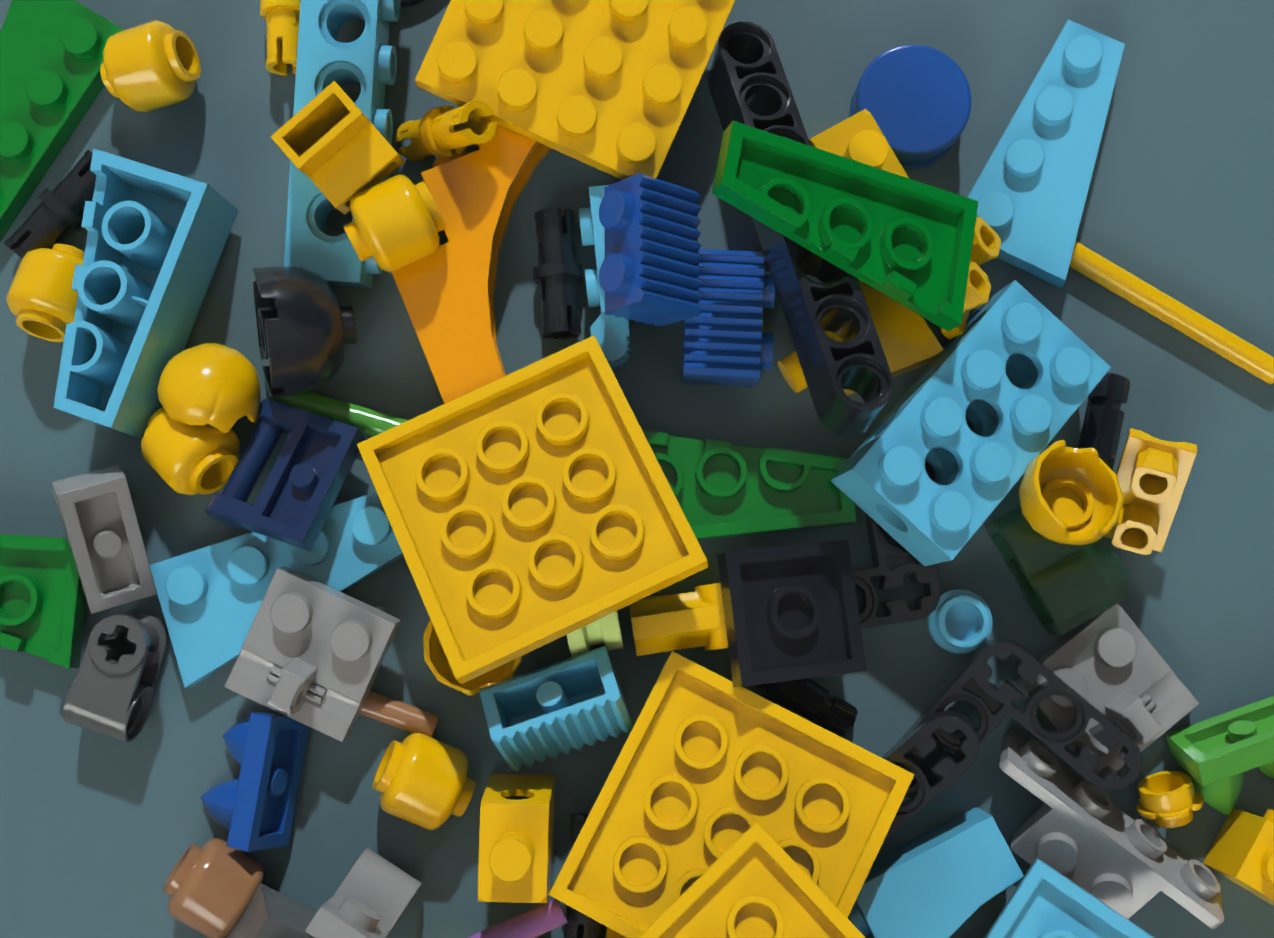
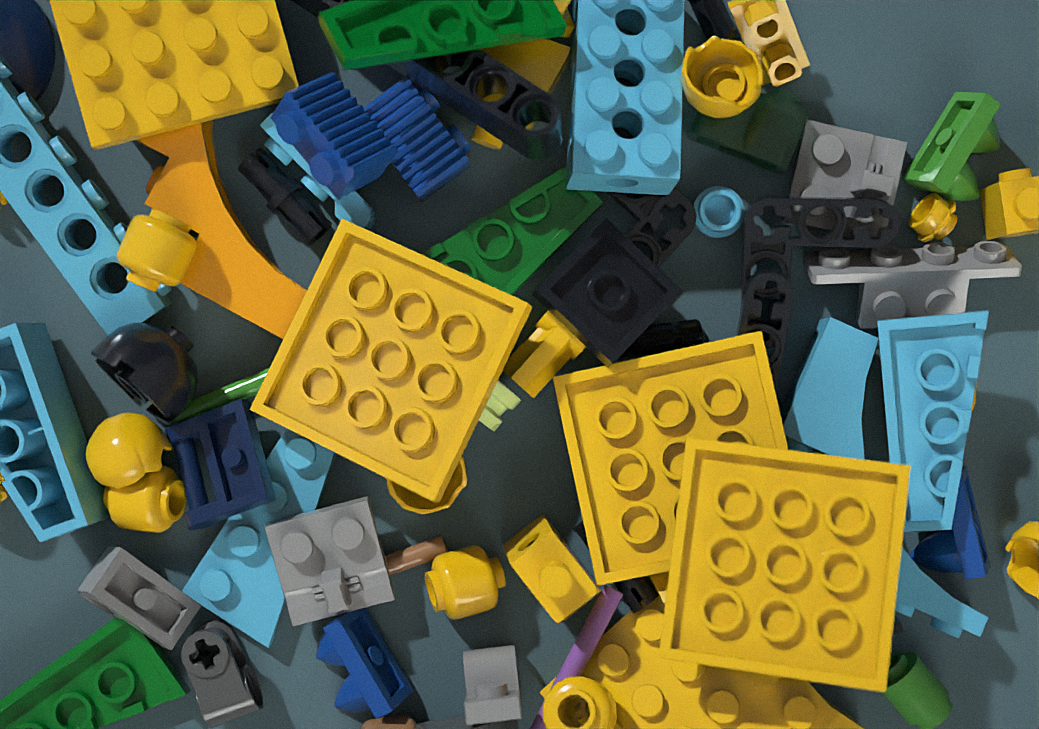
camera: 35 degrees left, 5 degrees up
(337, 147) = (81, 231): yellow piece -> none
(446, 131) = (137, 163): yellow pin -> none
(556, 709) = (510, 471): medium azure brick -> none

